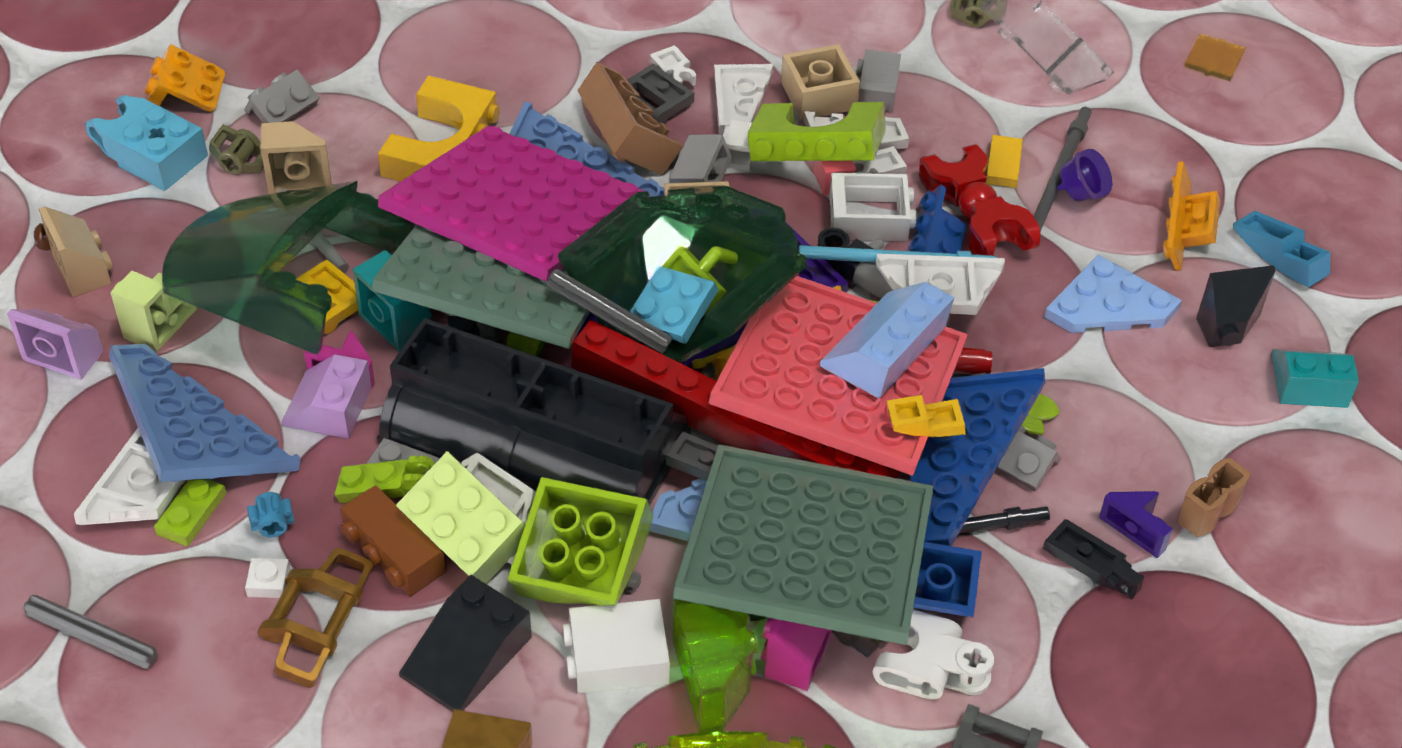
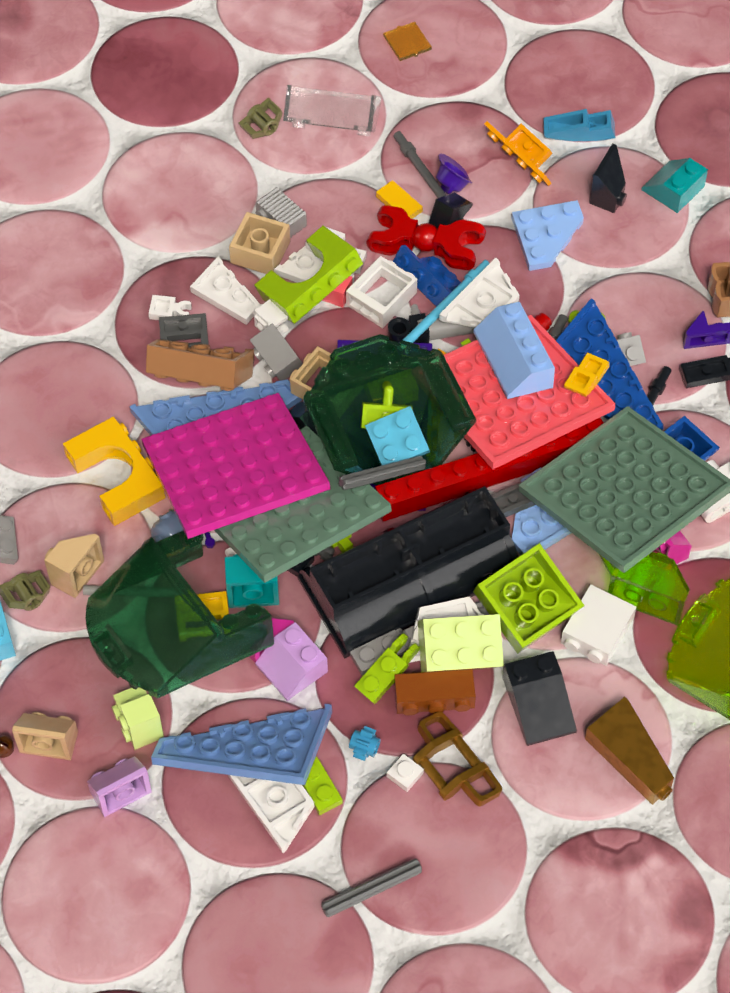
camera: 50 degrees left, 10 degrees up
(1037, 196) = (449, 209): none -> black slope

